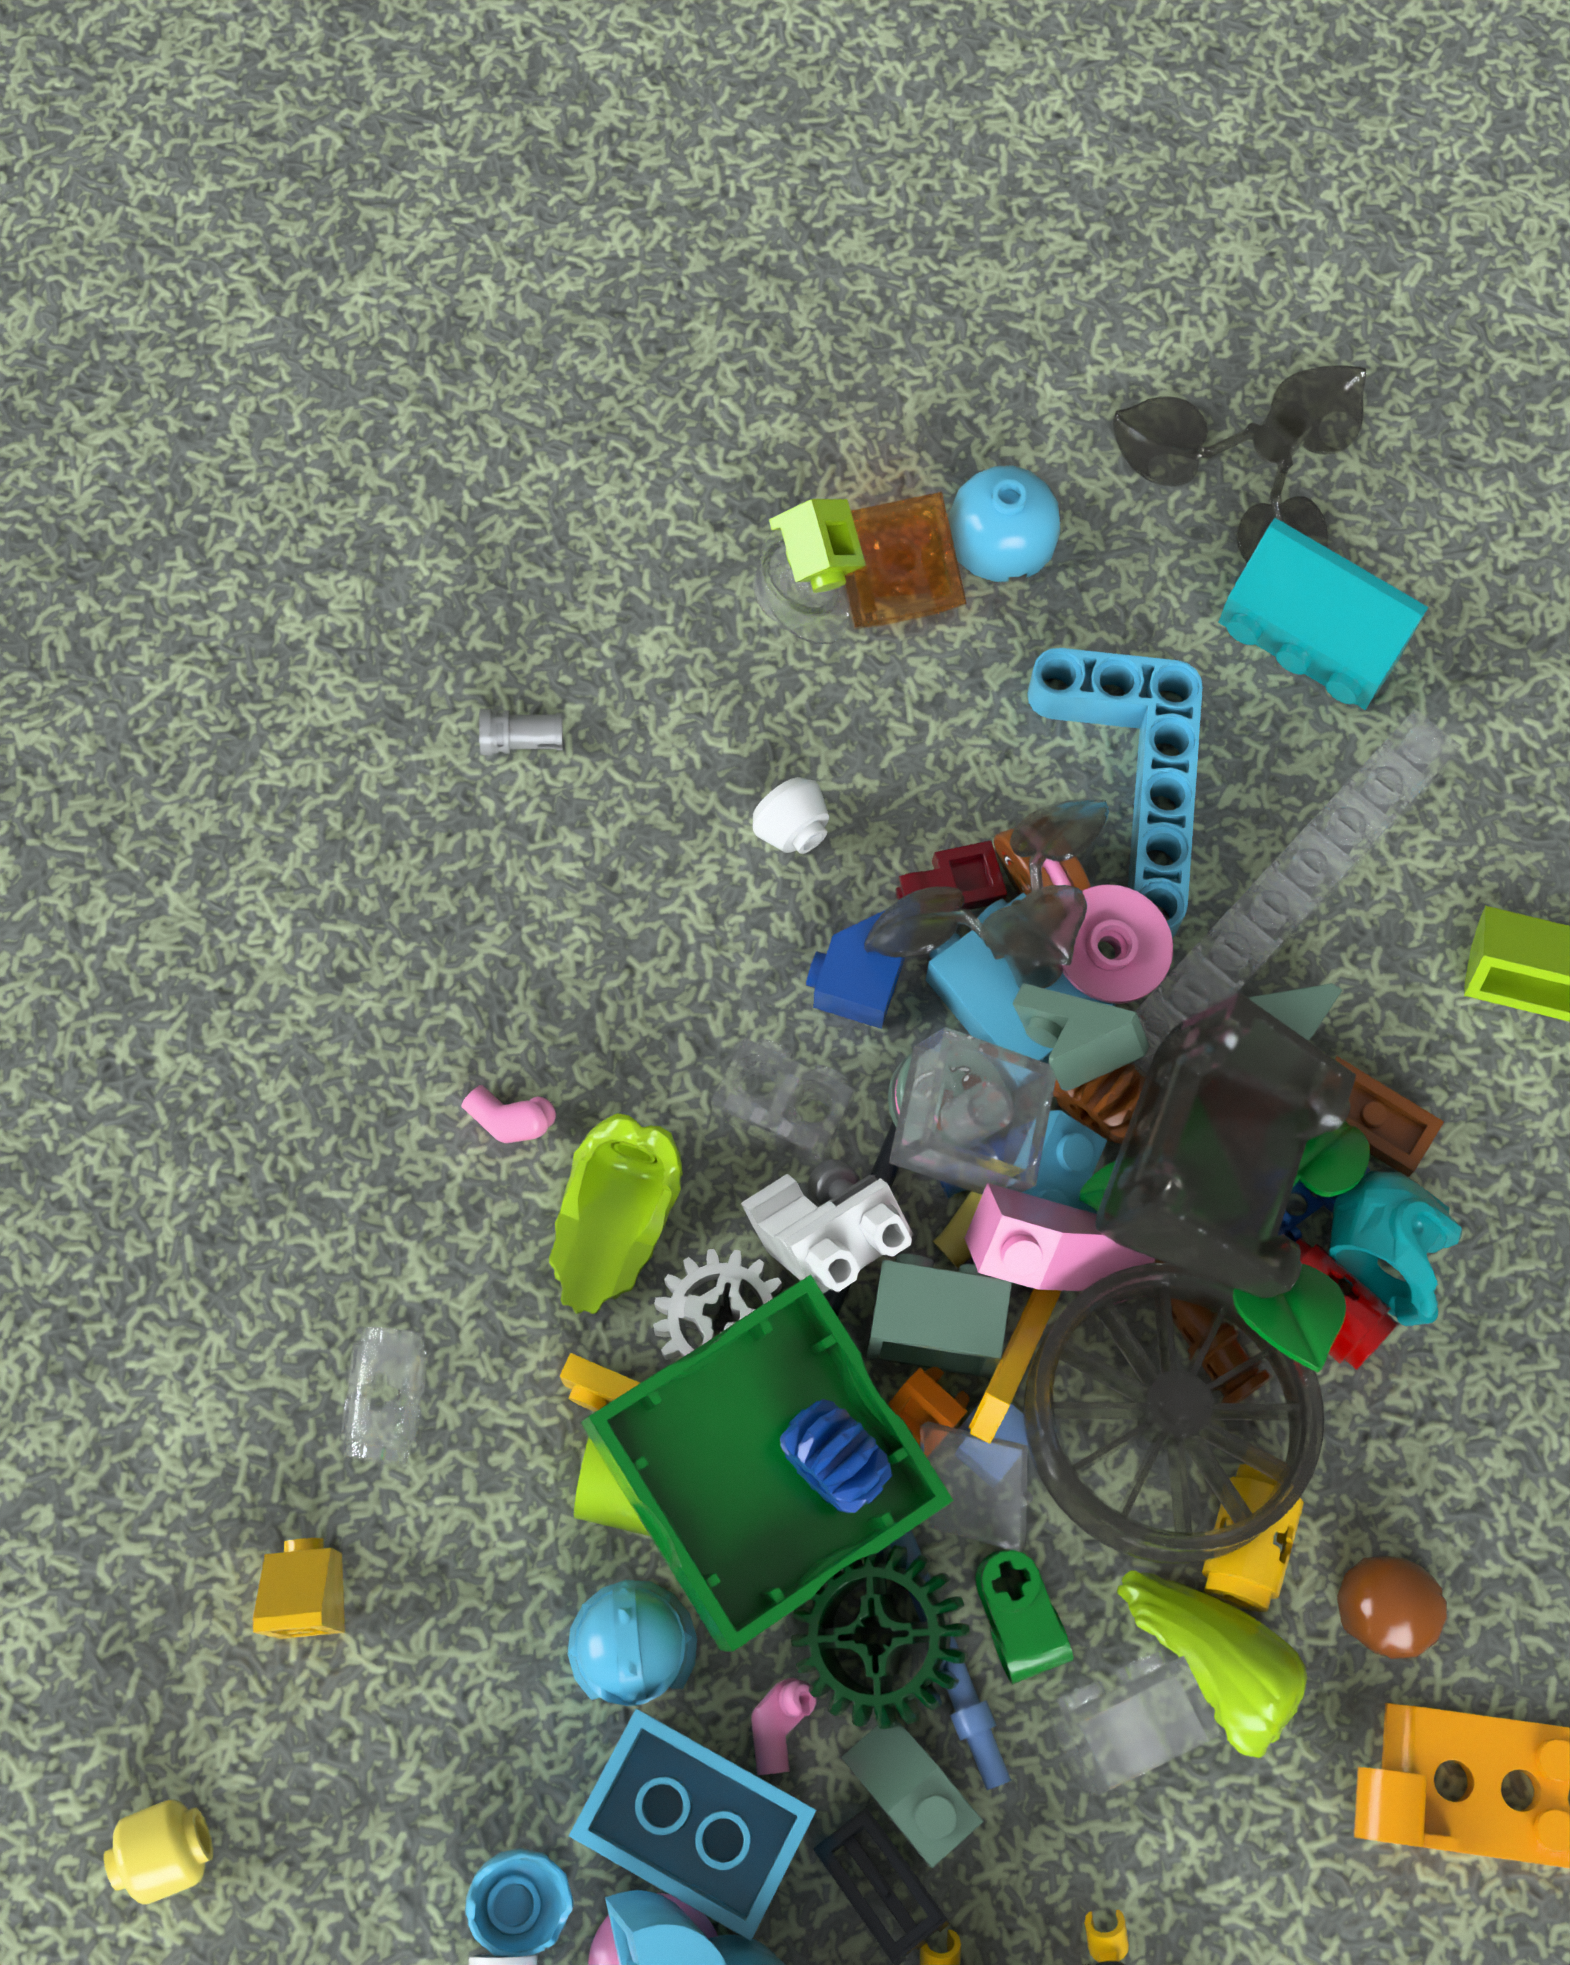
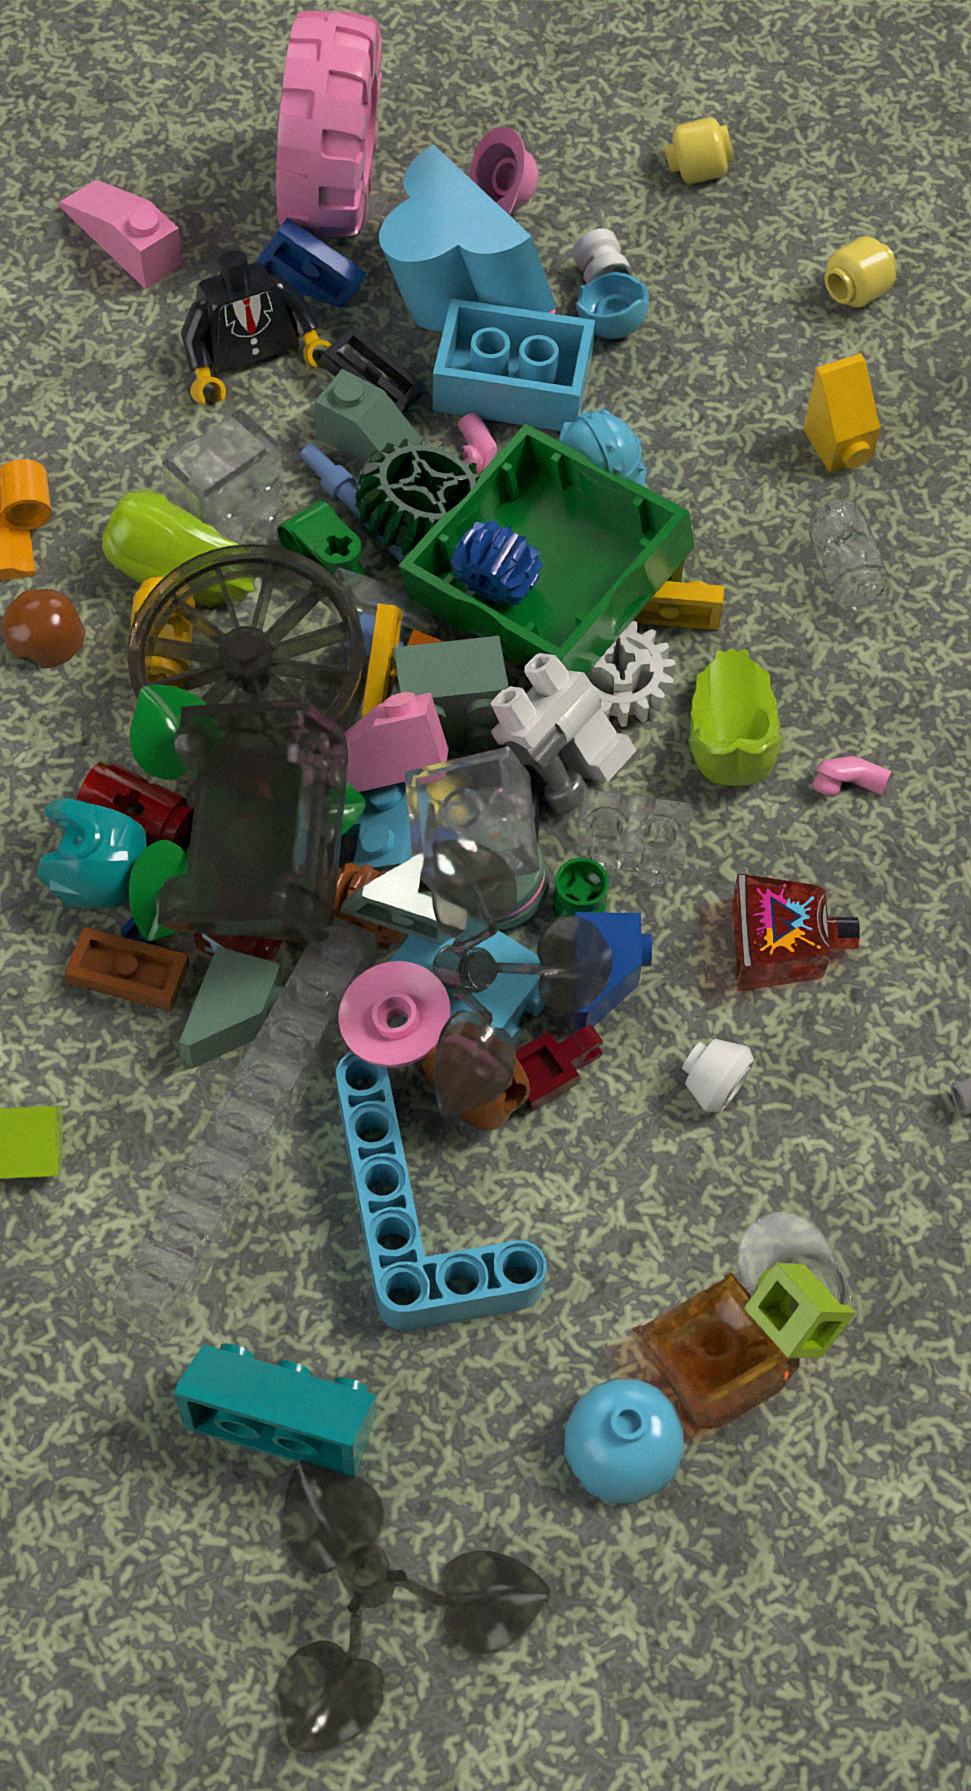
camera: 160 degrees right, 10 degrees down
(663, 944) = (784, 932): none -> clear red torso
(864, 1039) = (582, 881): none -> green wheel

